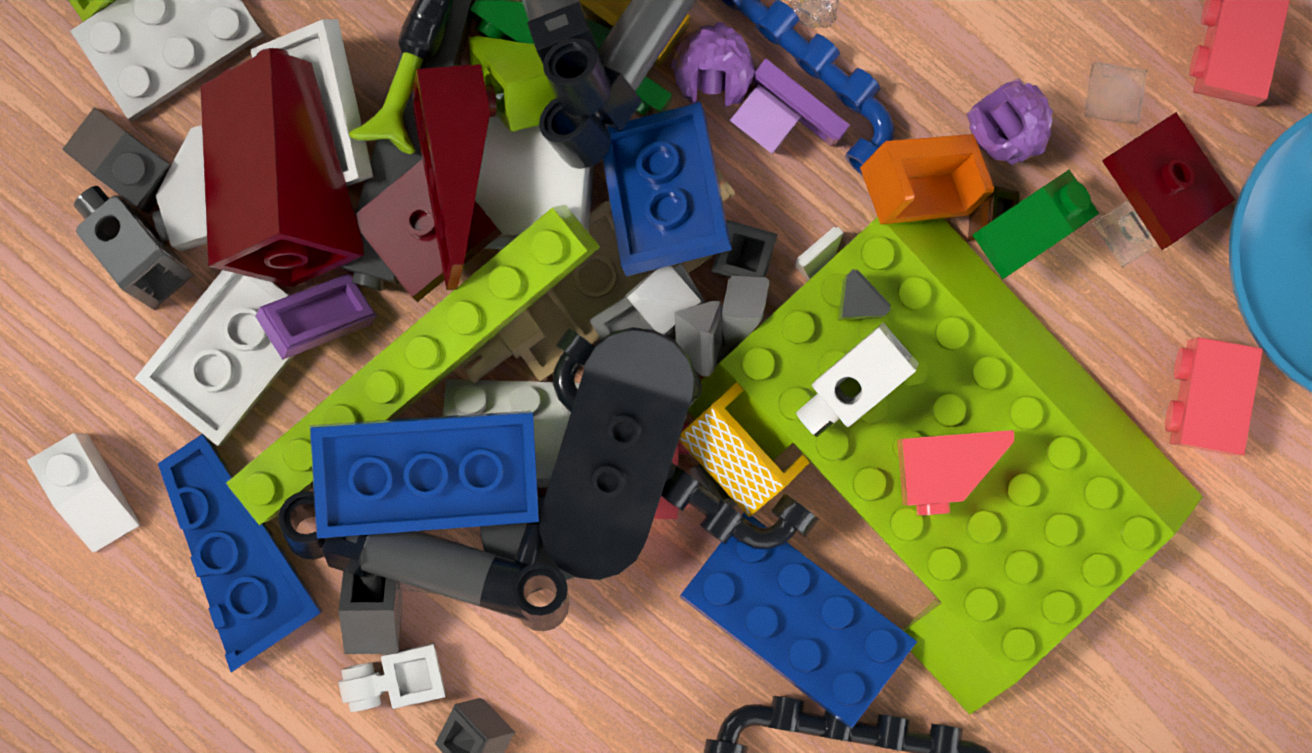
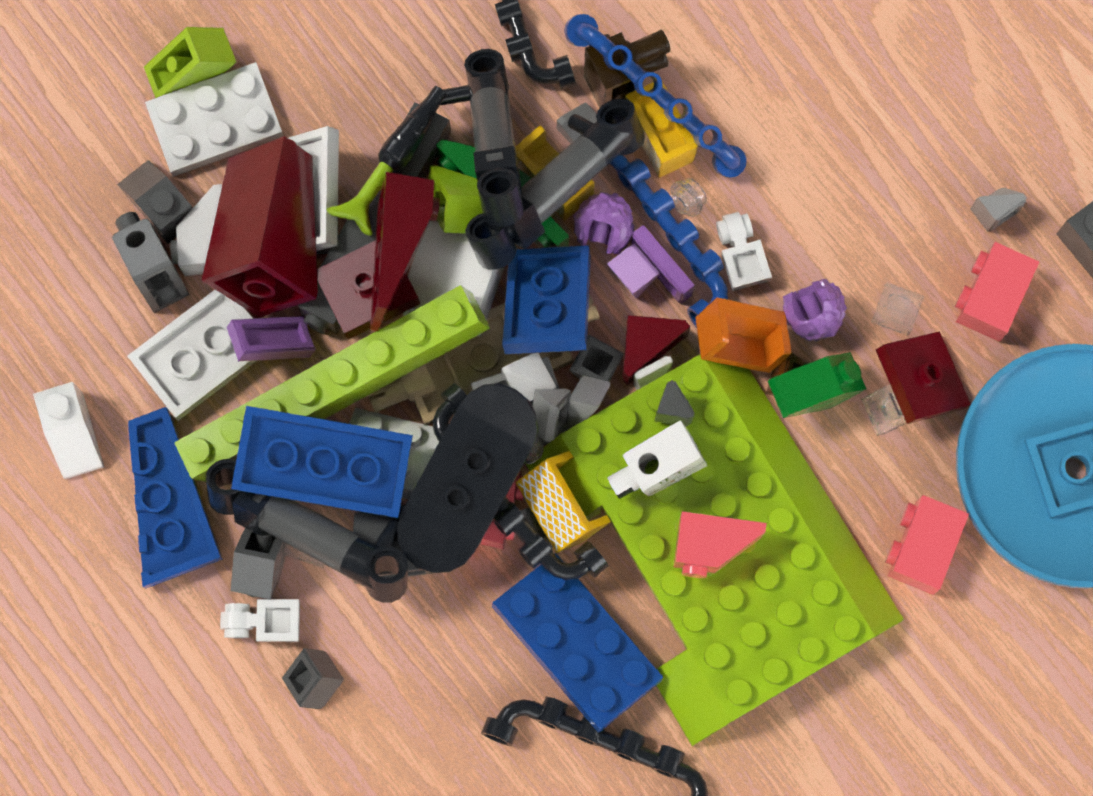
camera: 15 degrees right, 10 degrees down
(801, 211) = (649, 341): none -> dark red slope
(907, 75) = (745, 261): none -> white plate

